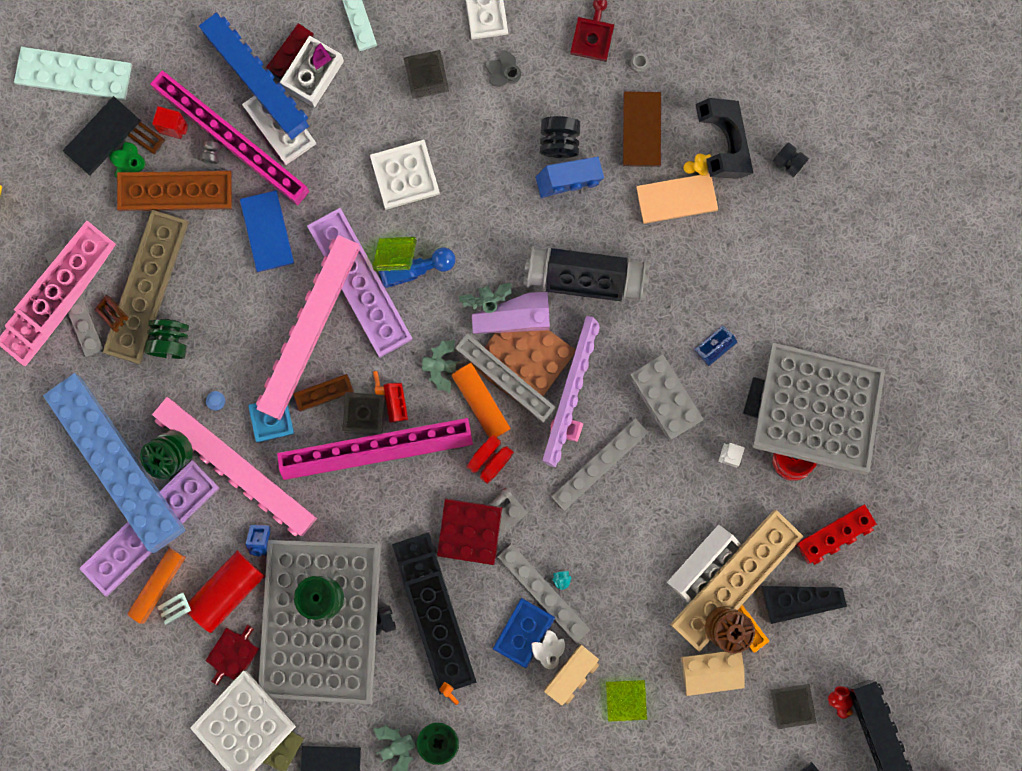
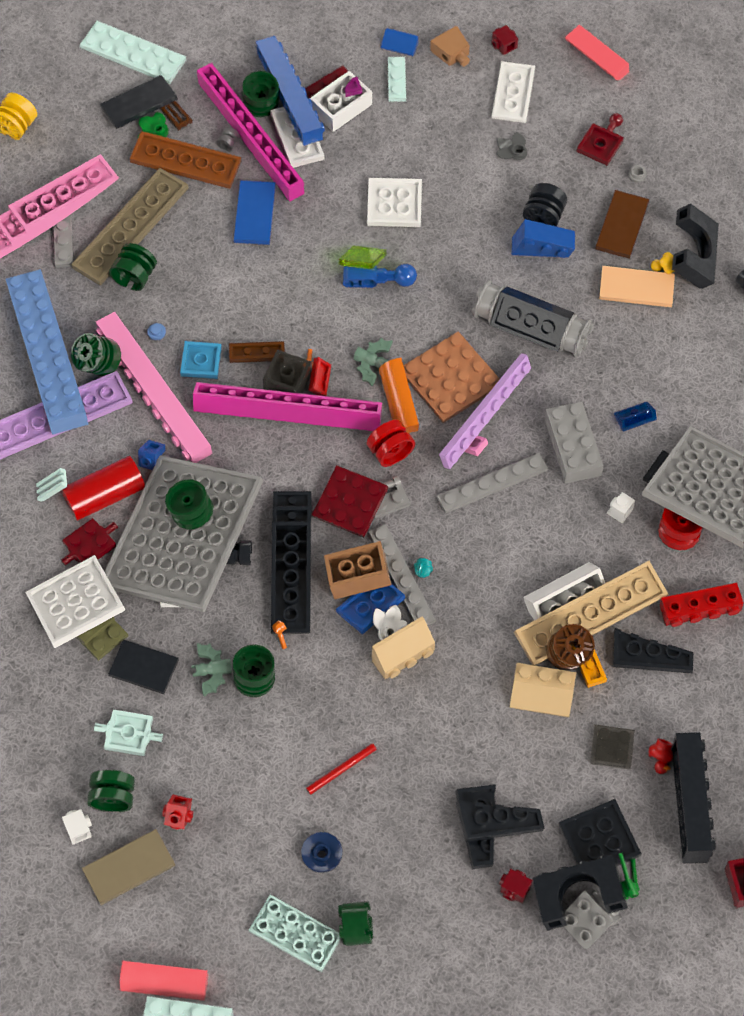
camera: 15 degrees right, 20 degrees down
(119, 320) = (95, 240): reddish brown tile -> none
(156, 585) = (43, 464): orange brick -> none
(170, 123) = (202, 104): red brick -> none
(216, 85) = (260, 93): none -> dark green wheel
(308, 327) = (262, 292): bright pink brick -> none
(363, 288) = (323, 275): lavender plate -> none
(426, 74) = (441, 130): clear smoke brick -> none
(487, 298) = (434, 314): sand green animal -> none
(502, 607) = (357, 570): none -> medium nougat brick
(505, 378) = (429, 382): light grey plate -> none
(519, 314) = (462, 337): lavender wedge -> none
(626, 700) = (449, 693): clear neon green tile -> none

